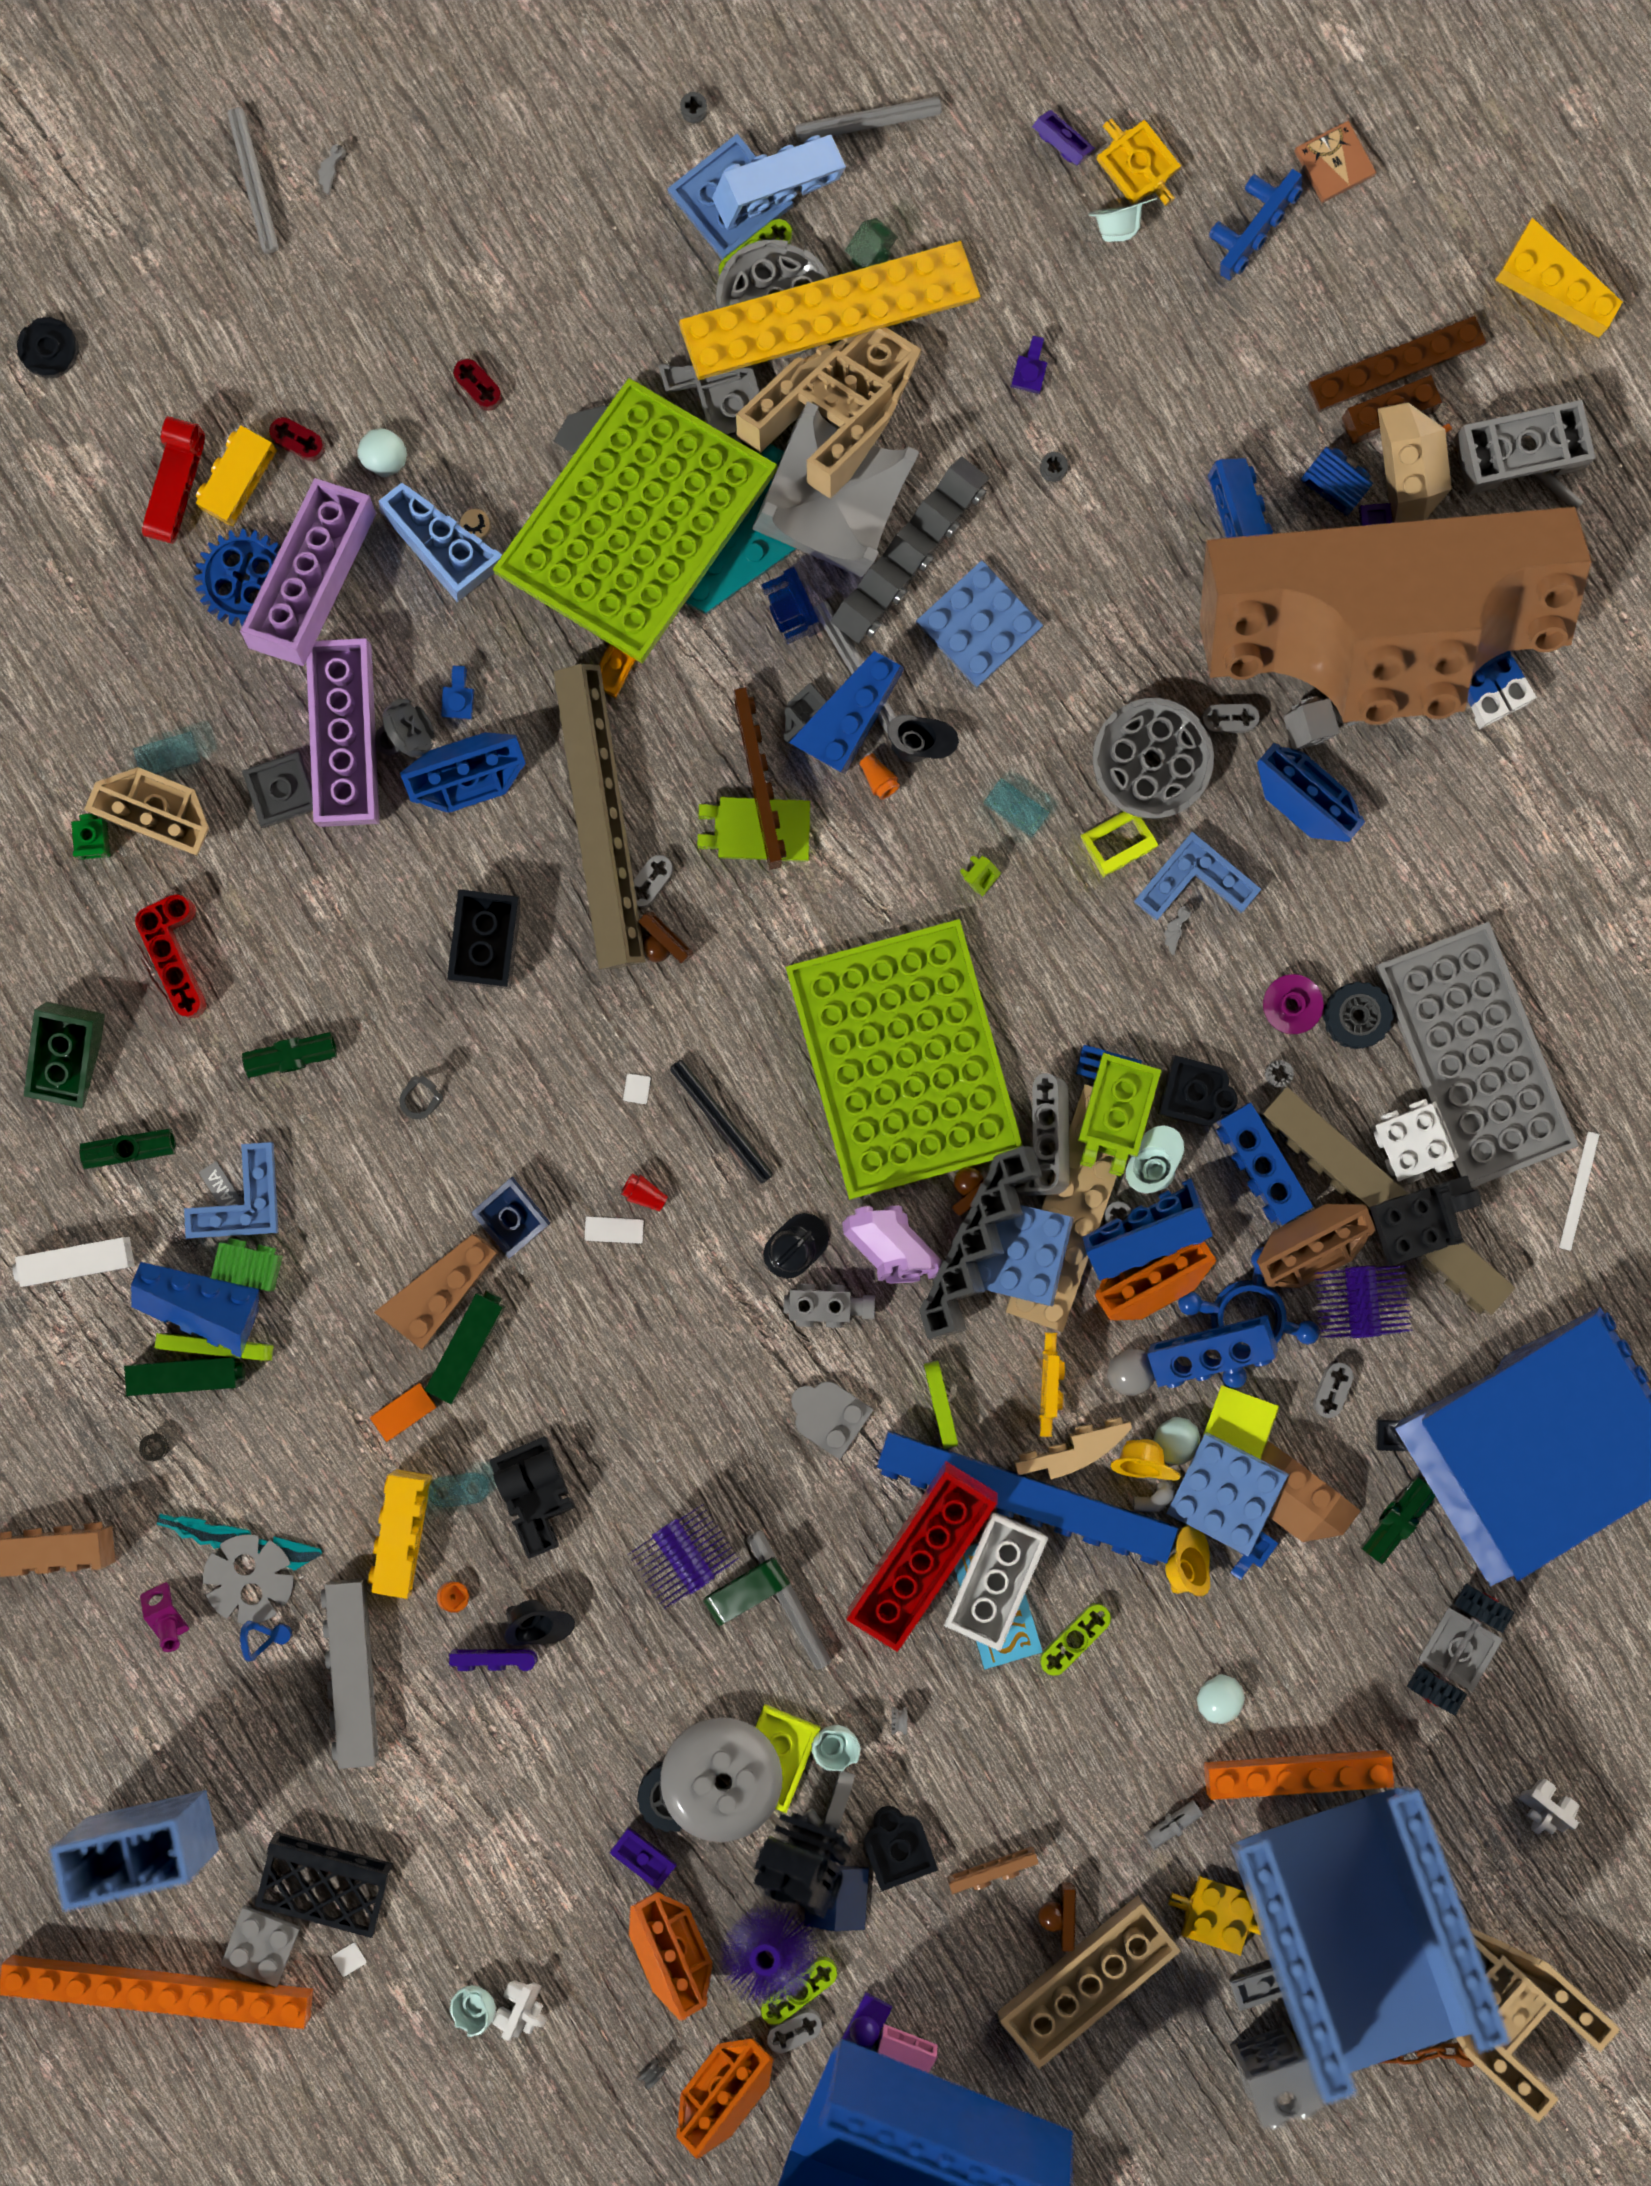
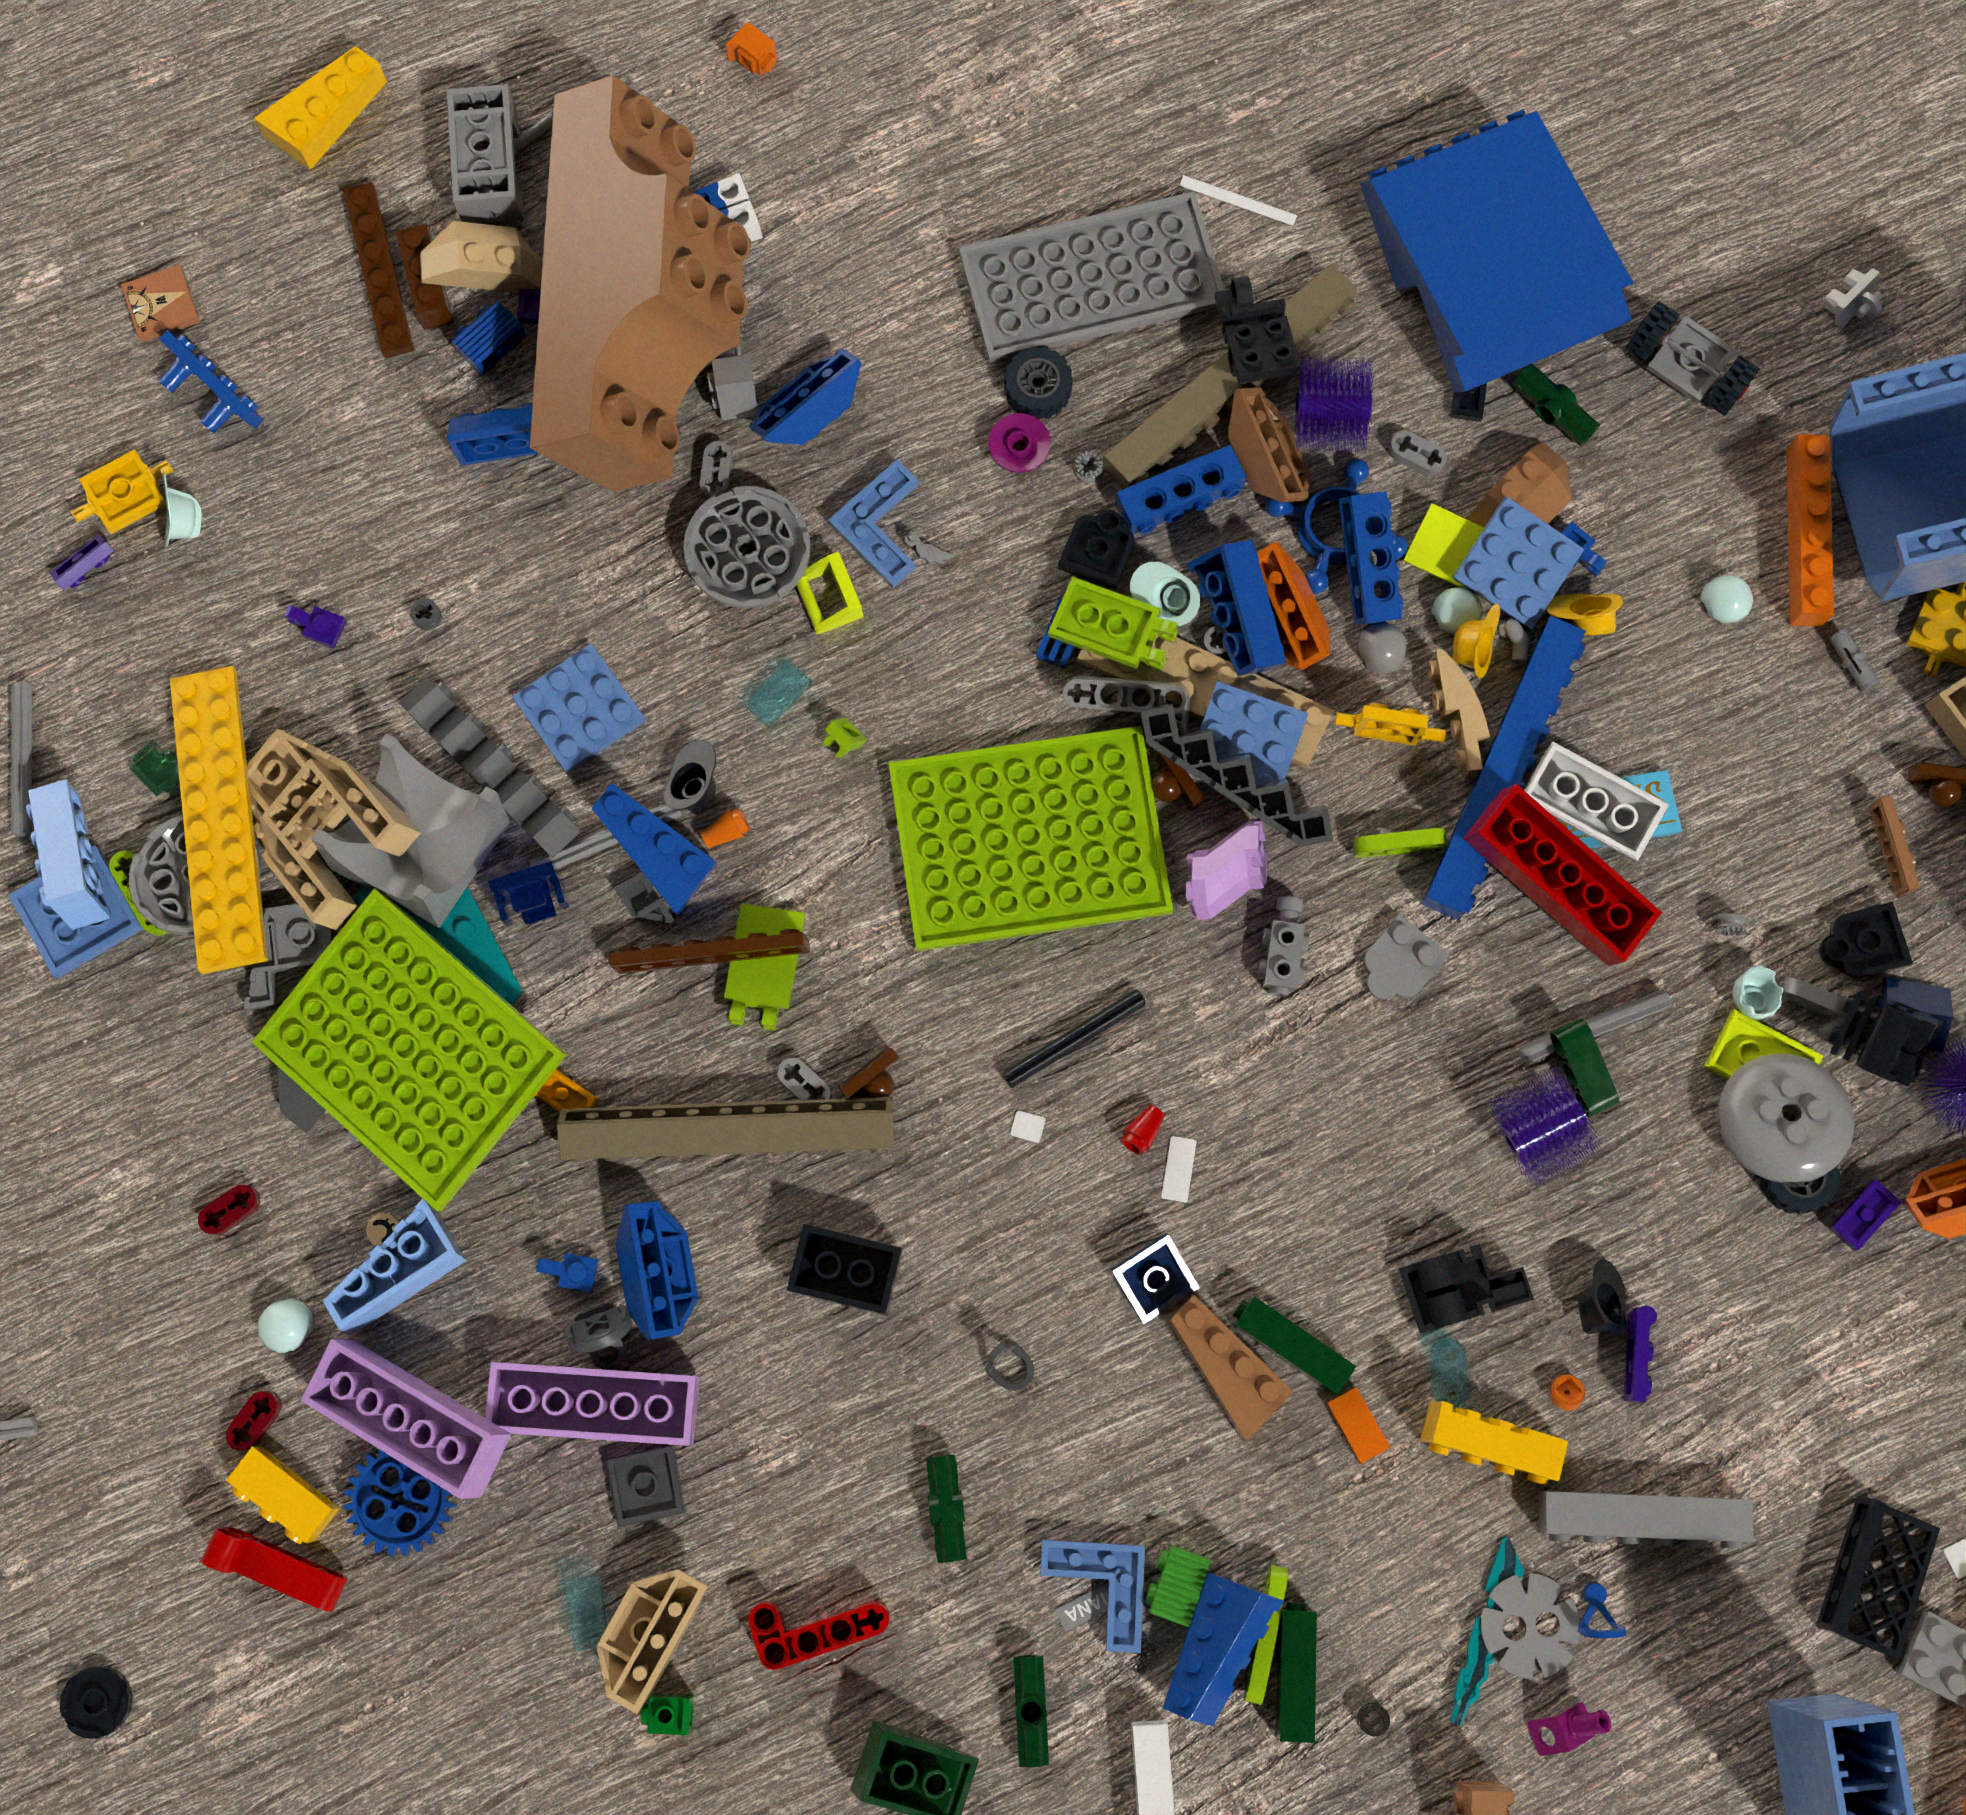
camera: 80 degrees left, 10 degrees down
(796, 1245) = (1216, 976): black piece -> none
(1073, 1626) = (1678, 747): lime beam -> none
(1415, 1141) = (1173, 340): white brick -> none

